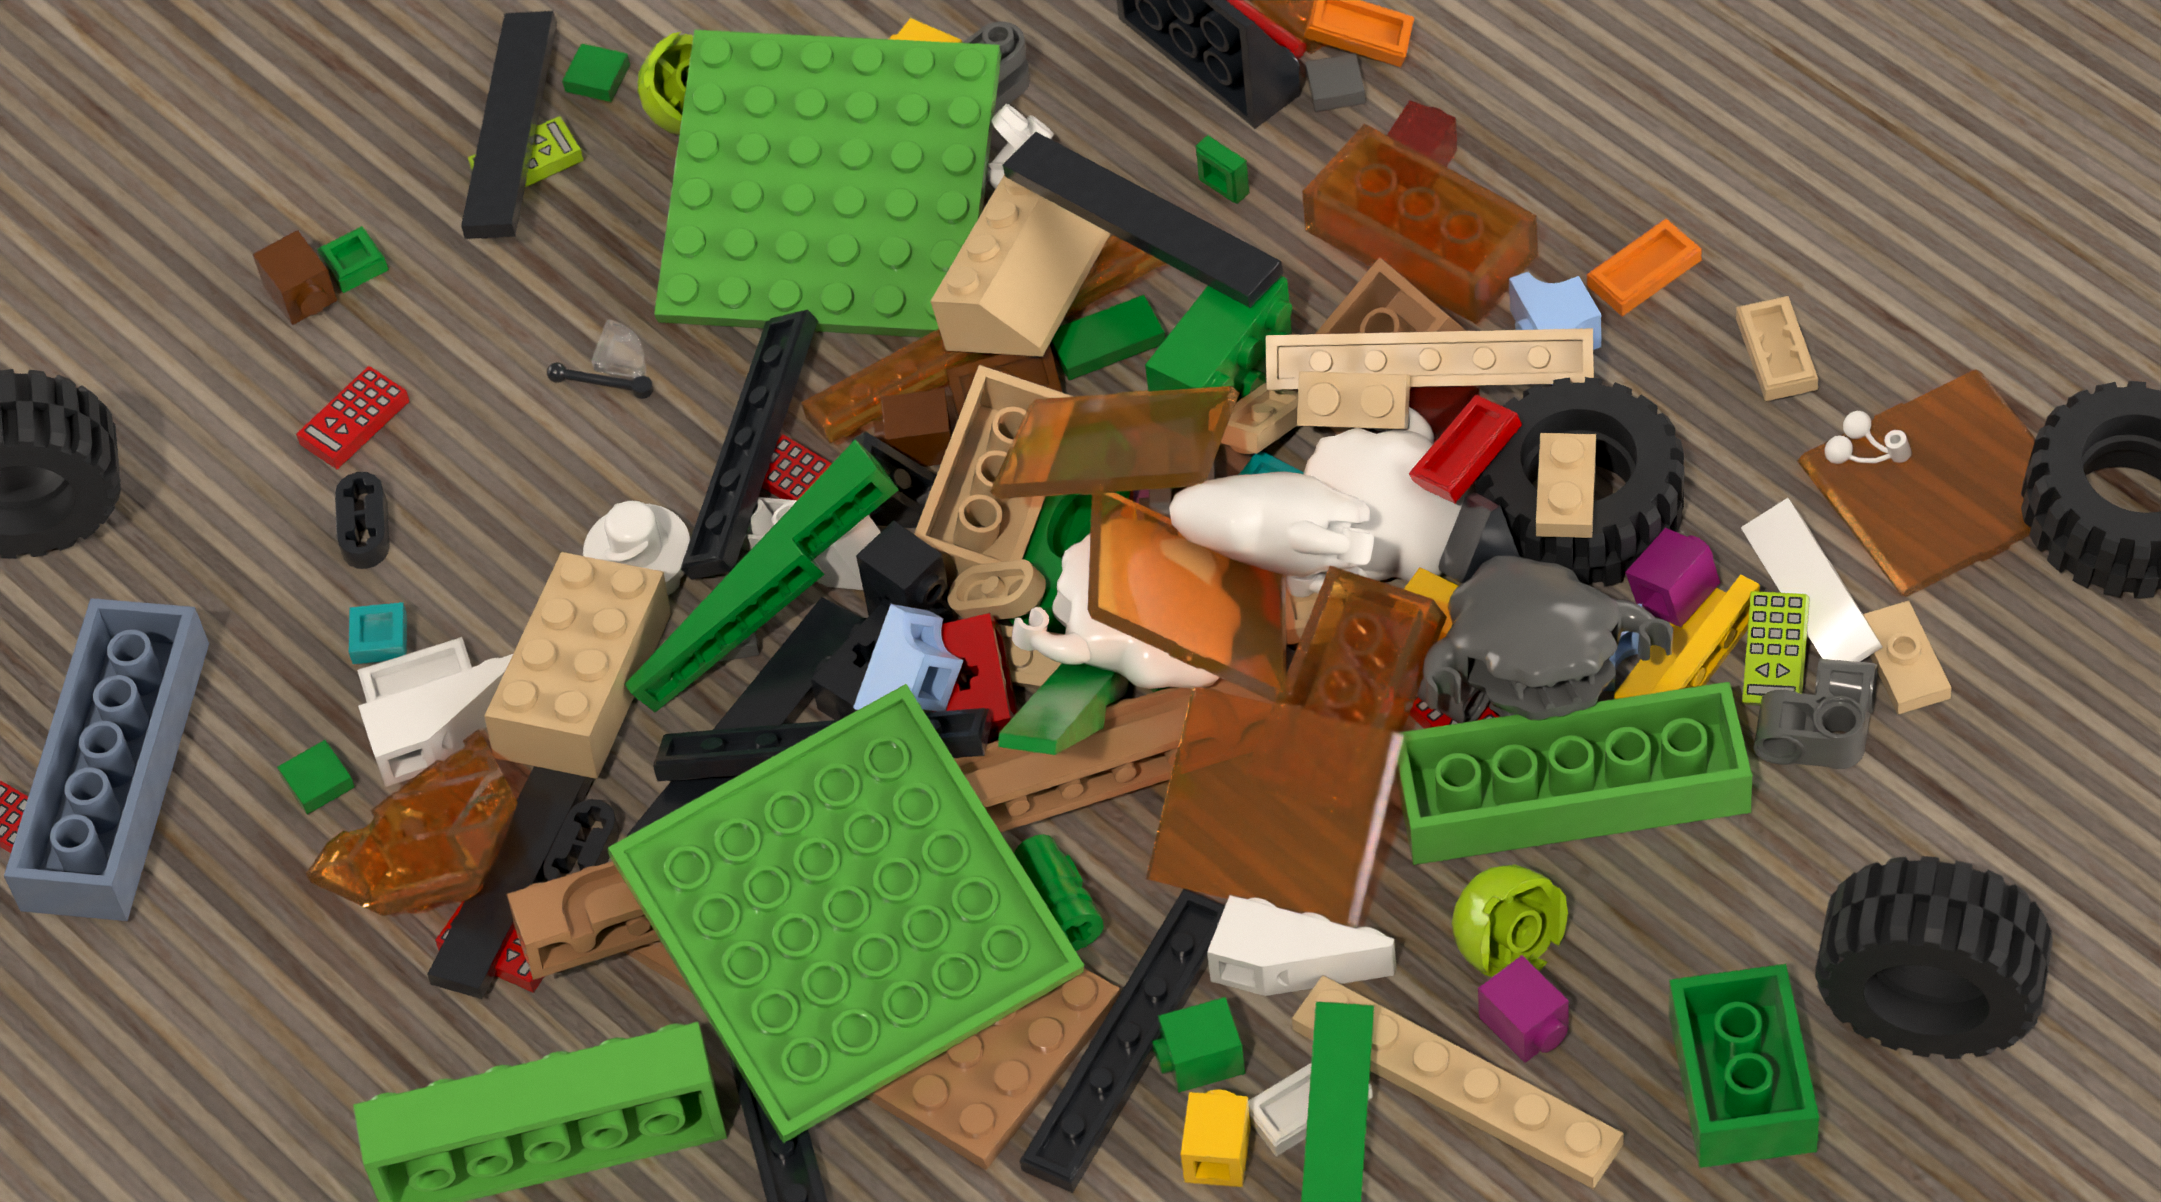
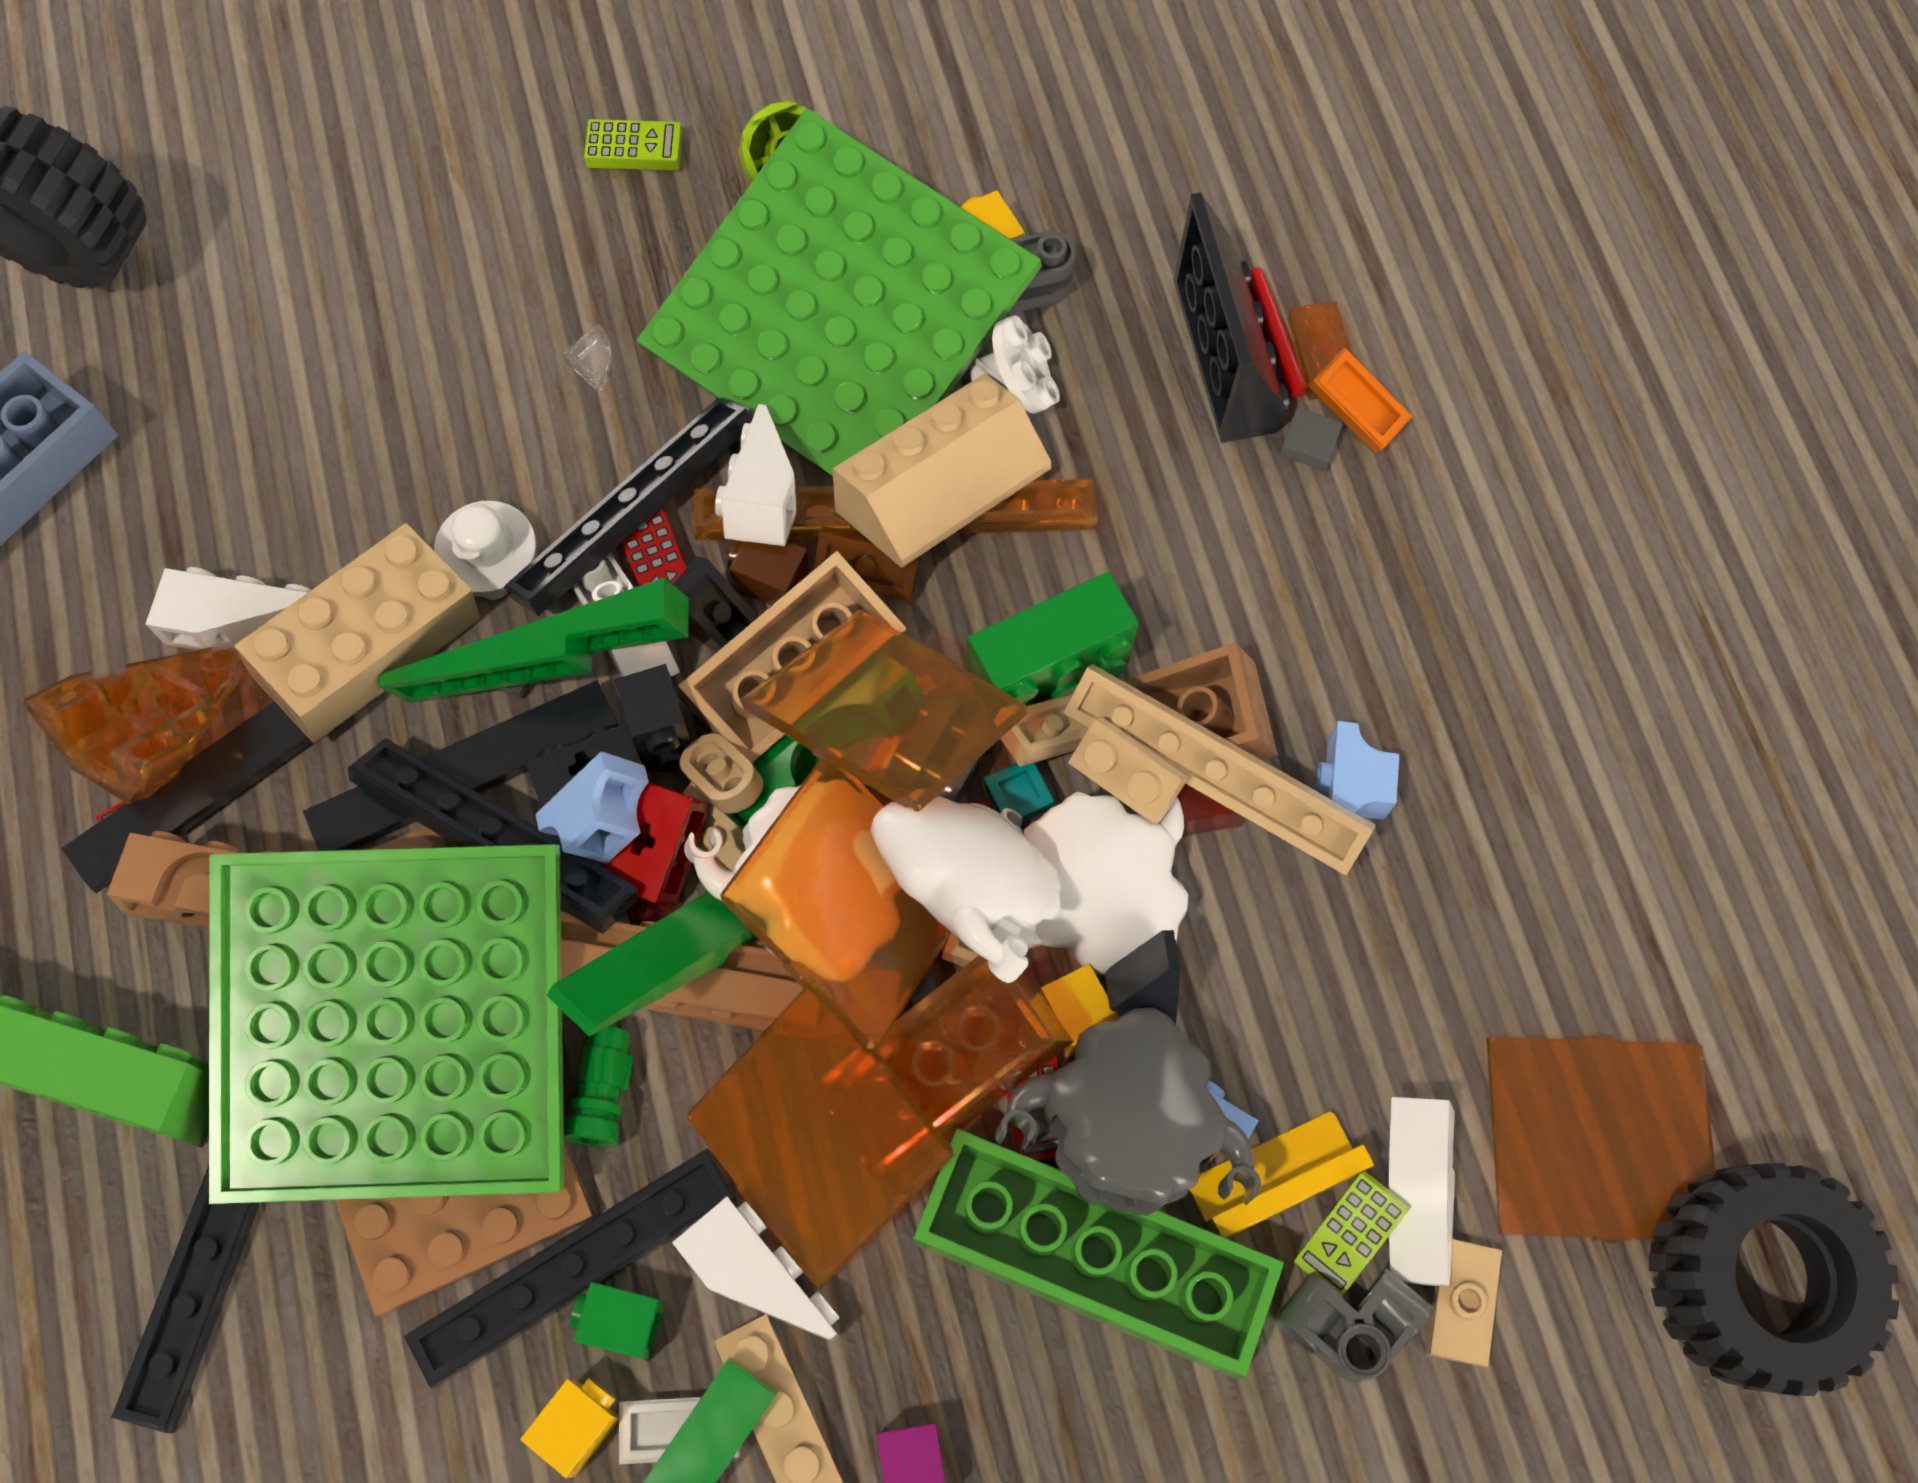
camera: 20 degrees right, 15 degrees up
(295, 277) = (389, 150): reddish brown brick -> none
(316, 777) = (113, 605): green tile -> none
(350, 521) = (306, 395): black beam -> none
(352, 259) = (449, 158): green tile -> none
(352, 417) = (356, 297): red tile -> none
(377, 632) = (241, 504): teal plate -> none
(414, 669) = (237, 555): white tile -> none
(509, 125) = (633, 110): black tile -> none
(571, 843) = (262, 800): black beam -> none
(596, 72) = (735, 99): green tile -> none
(640, 386) = (589, 396): black hinge -> none
(867, 356) = (760, 486): none -> white slope
(1107, 337) = (978, 570): green tile -> none
(1143, 219) = (1054, 497): black tile -> none
(1222, 169) = (1165, 470): green tile -> none
(1421, 220) = (1297, 620): clear orange brick -> none
(1427, 132) = (1342, 541): clear red brick -> none
(1465, 448) = (1190, 884): red tile -> none
(1508, 916) = (946, 1367): lime cylinder -> none
(1566, 485) = (1254, 977): tan plate -> none
(1628, 443) = (1322, 907): black tyre -> none
(1644, 267) = (1466, 766): orange tile -> none
(1673, 576) = (1307, 1100): magenta brick -> none
(1776, 348) = (1533, 919): tan plate -> none
(1856, 426) = (1558, 1043): white piece -> none

